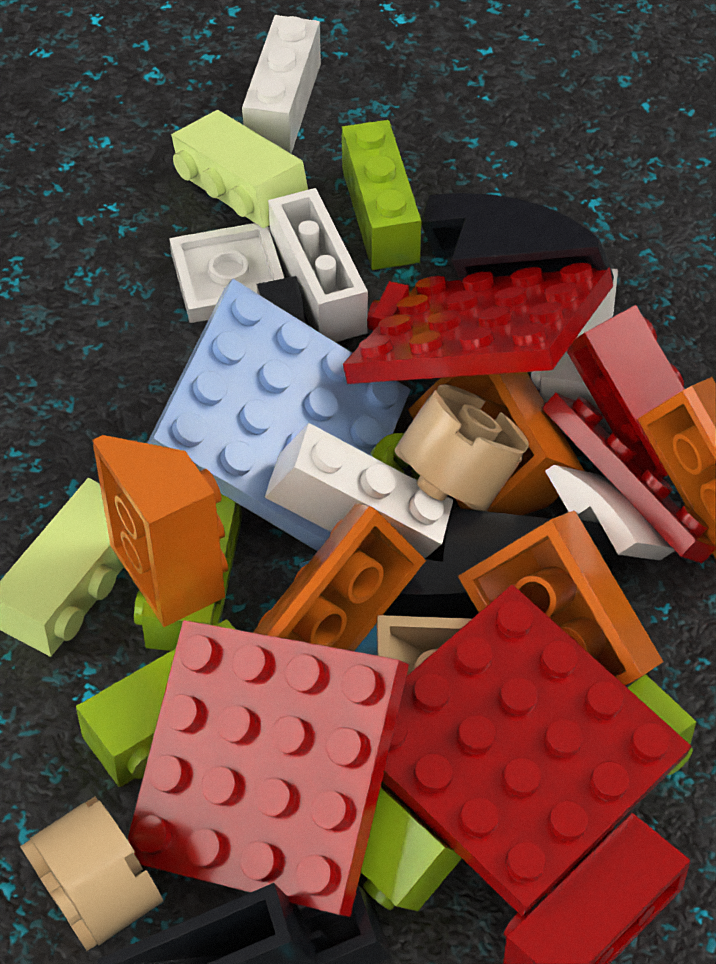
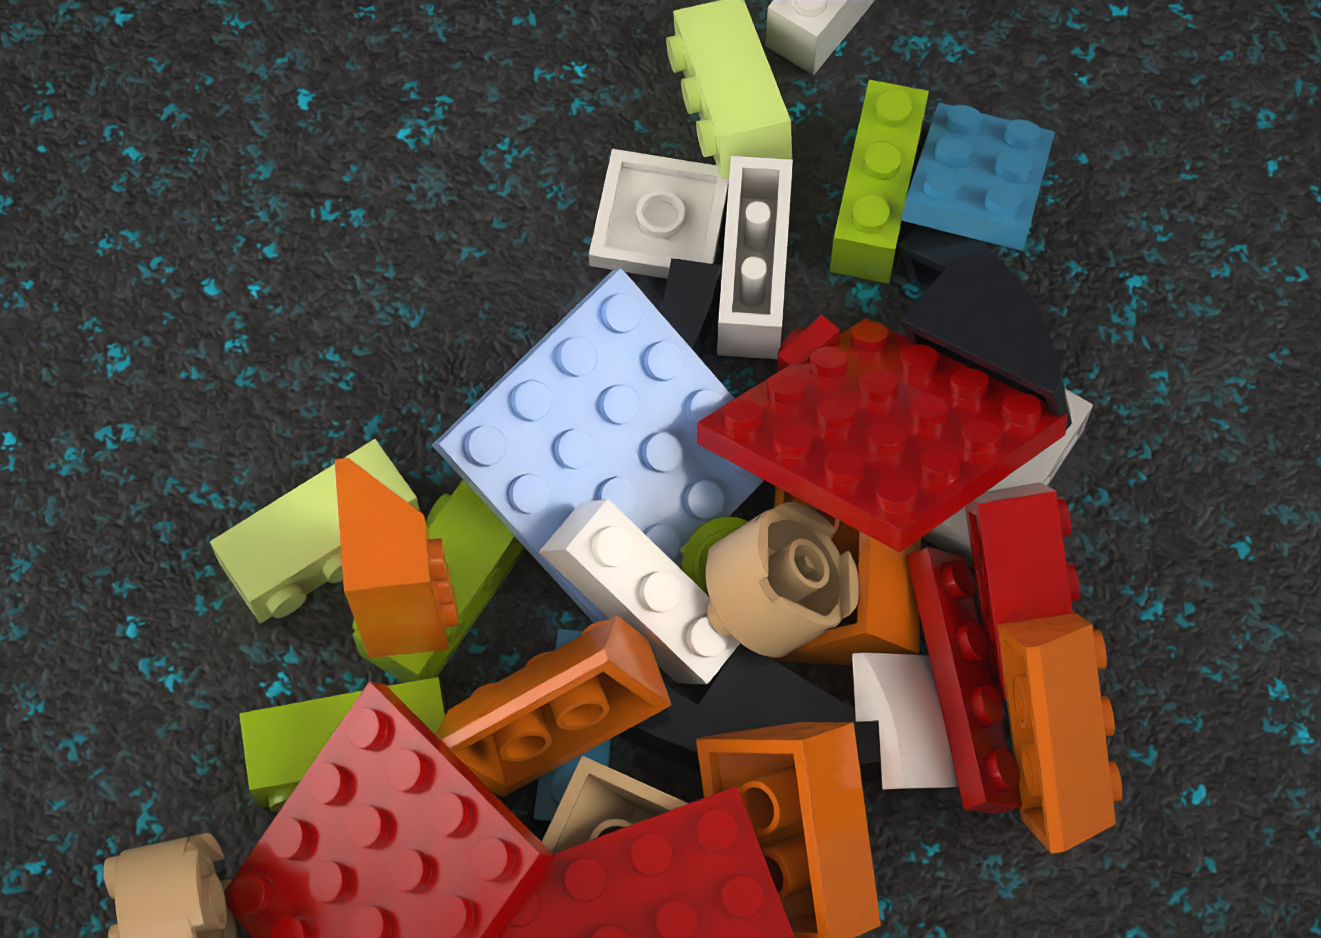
camera: 25 degrees right, 15 degrees up
(454, 162) = (979, 176): none -> dark azure plate

